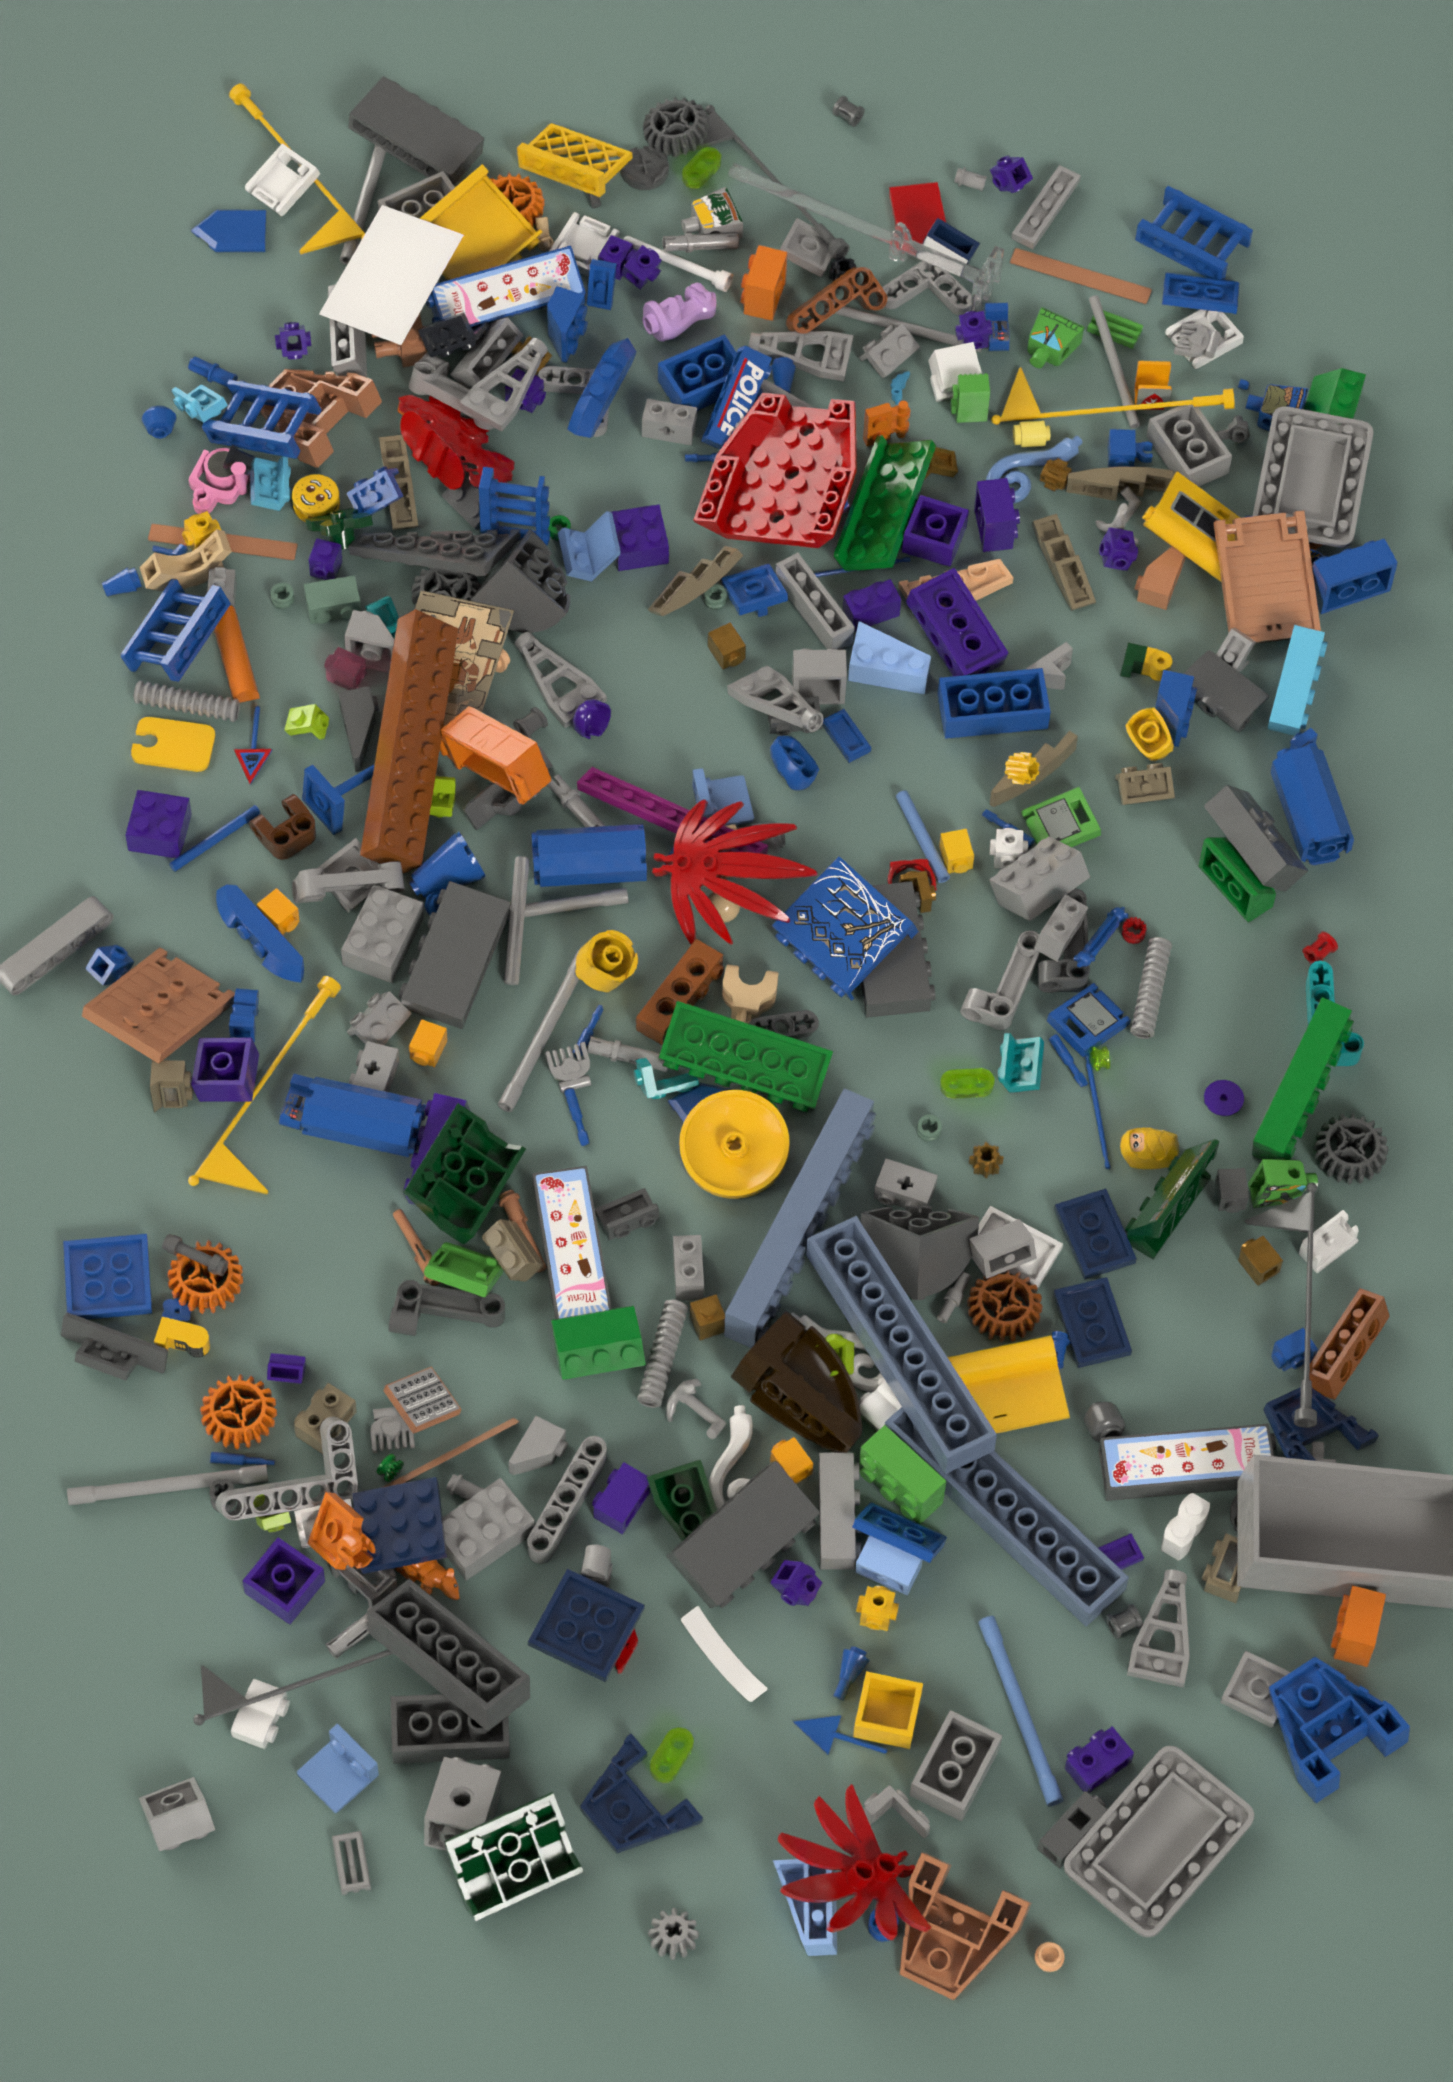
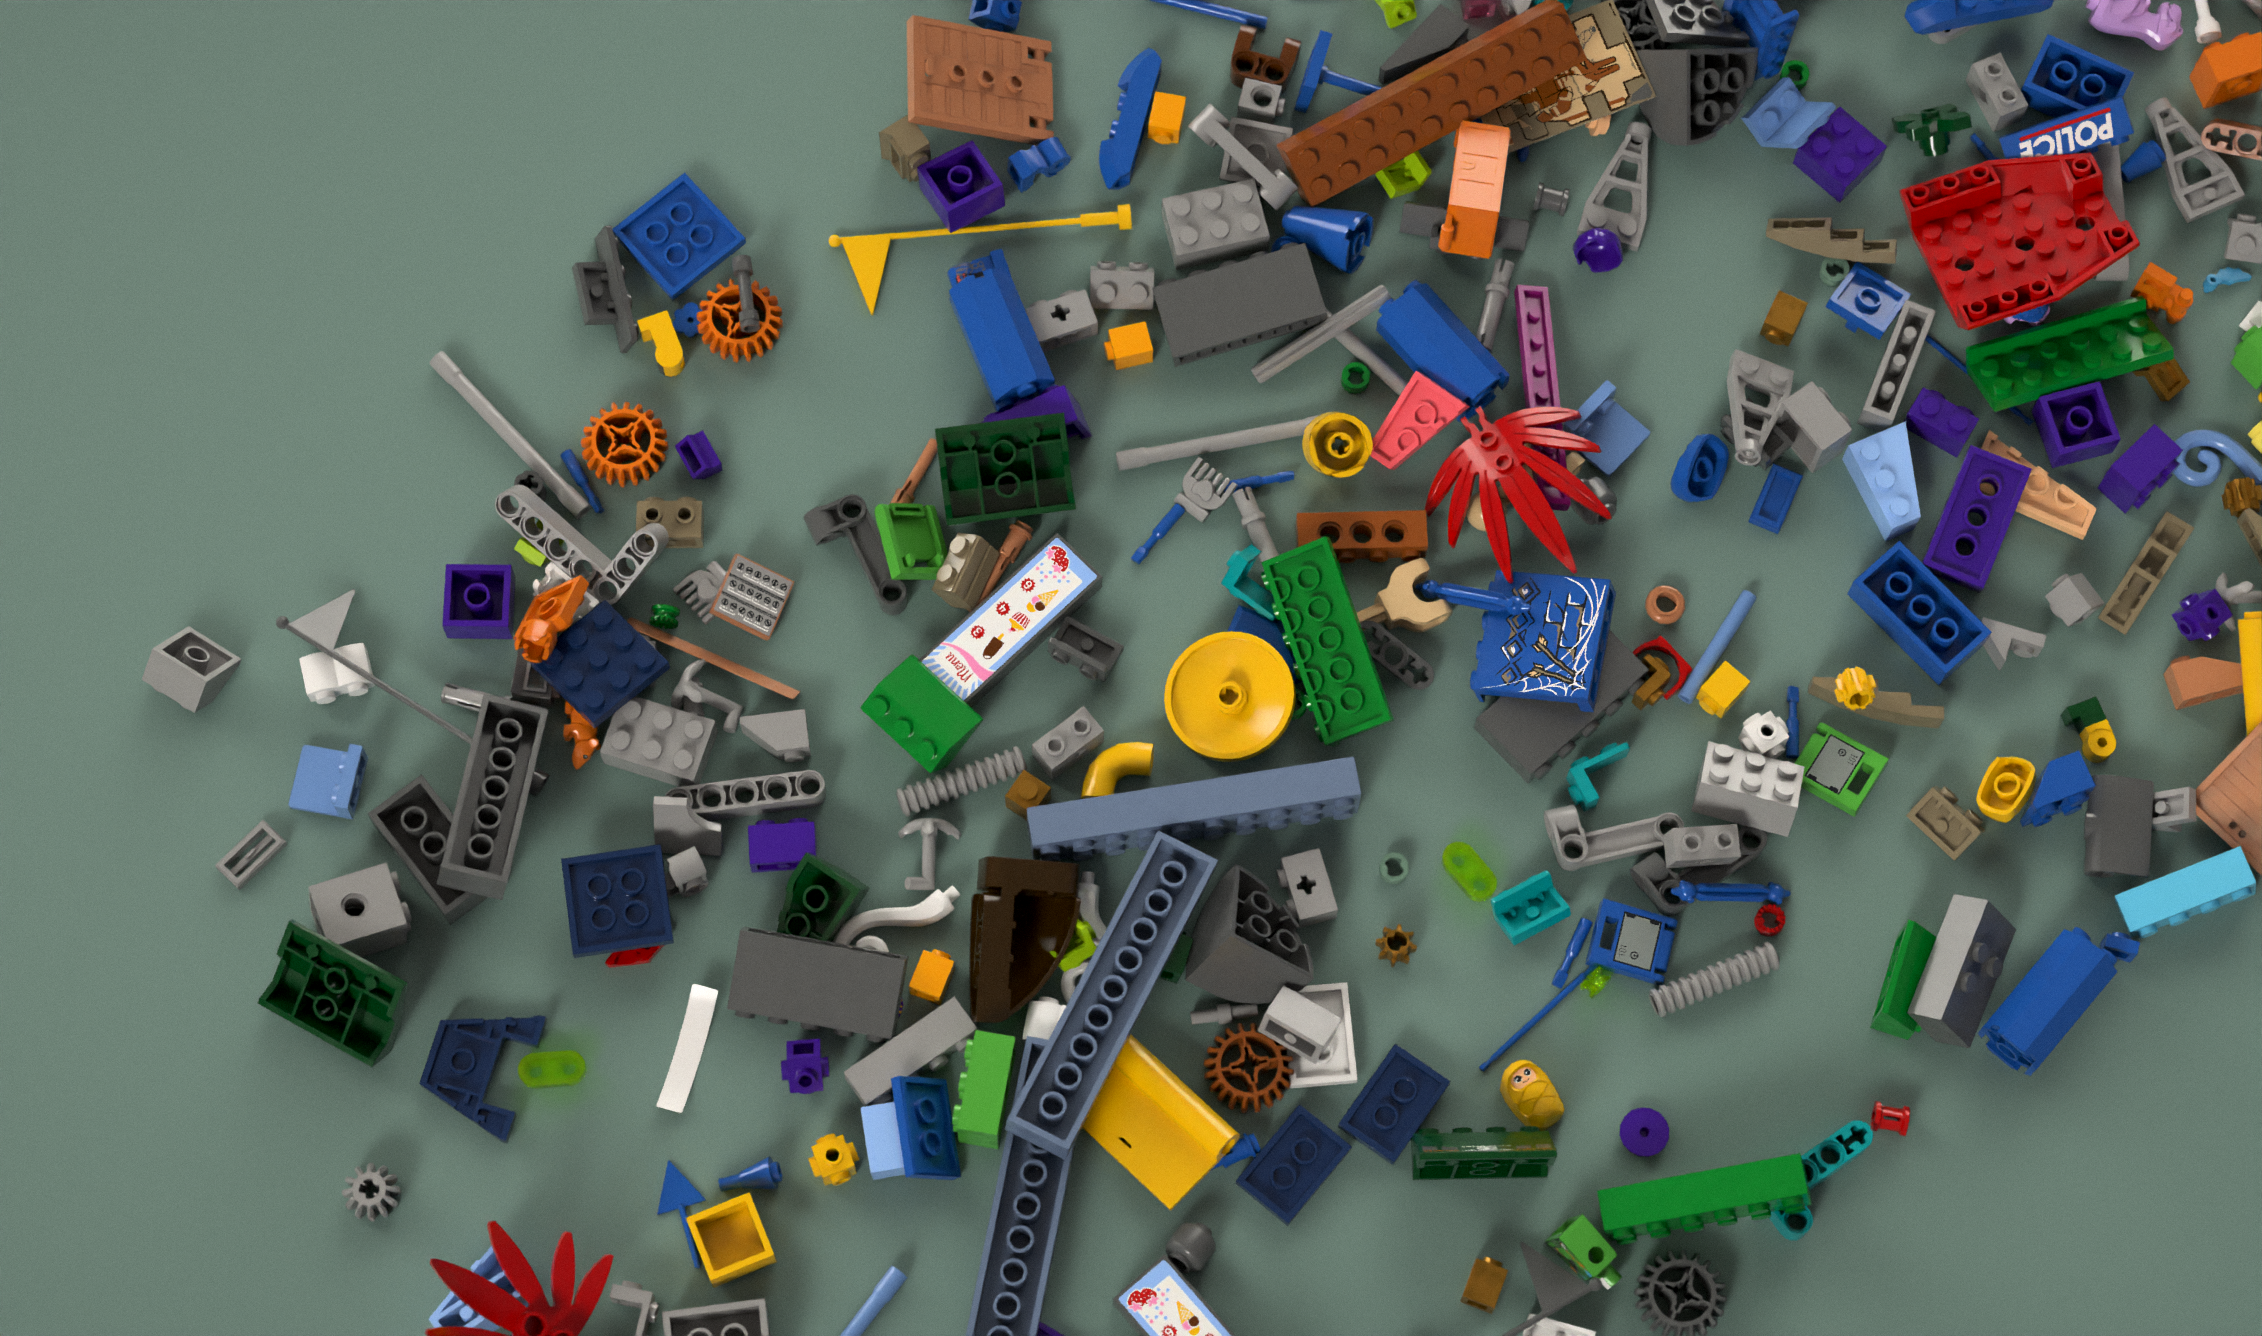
camera: 55 degrees right, 10 degrees up
(315, 838) = (1258, 90): none -> light grey brick
(463, 1480) = (697, 694): none -> light grey piece
(555, 928) = (1355, 388): none -> green bush
(561, 1551) = (681, 828): none -> light grey tile
(626, 900) = (1414, 420): none -> coral wing
(664, 472) = (1932, 127): none -> dark green plant
(725, 1250) = (1115, 763): none -> yellow cylinder
(781, 950) = (1473, 597): none -> blue wheel
(869, 856) = (1665, 592): none -> nougat piece
(956, 976) = (1581, 788): none -> teal bracket
(1051, 612) = (2073, 599): none -> light grey brick
(1231, 1190) = (1539, 1206): dark grey brick -> none

